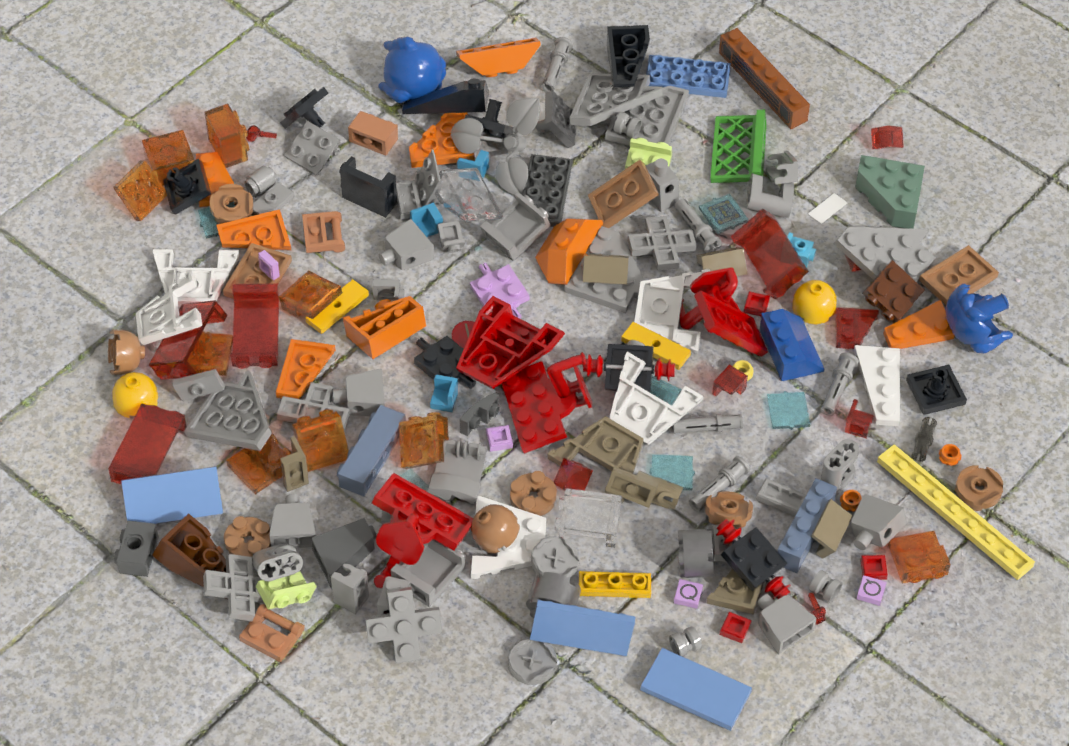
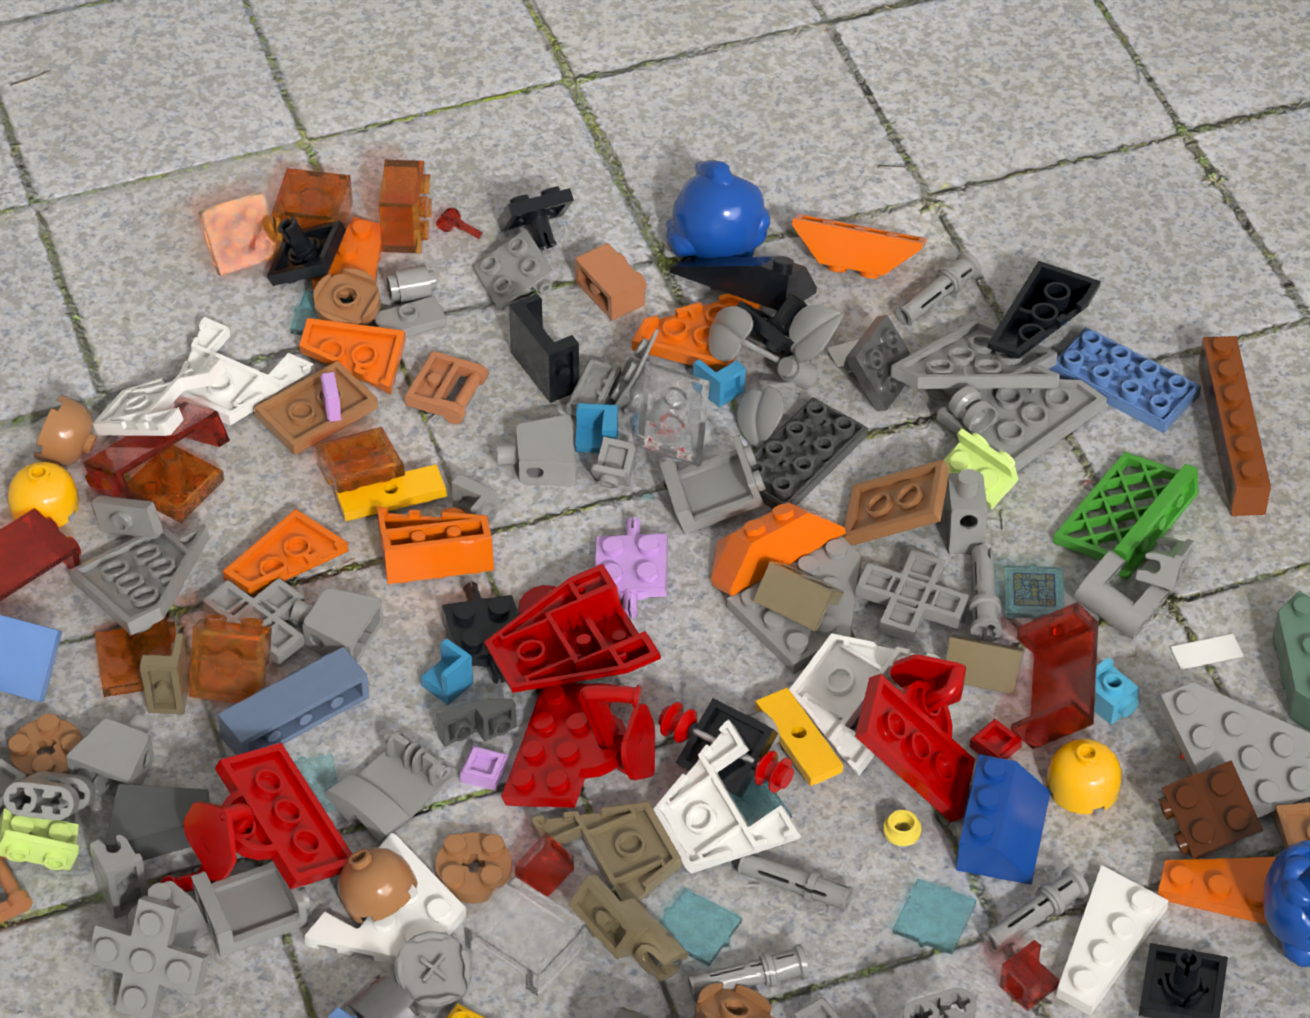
camera: 30 degrees right, 5 degrees down
(255, 325) = (261, 472): clear red panel -> none
(423, 440) = (363, 718): clear orange plate -> none
(730, 381) = (867, 832): clear red panel -> none
(853, 326) = (1121, 837): clear red wing -> none

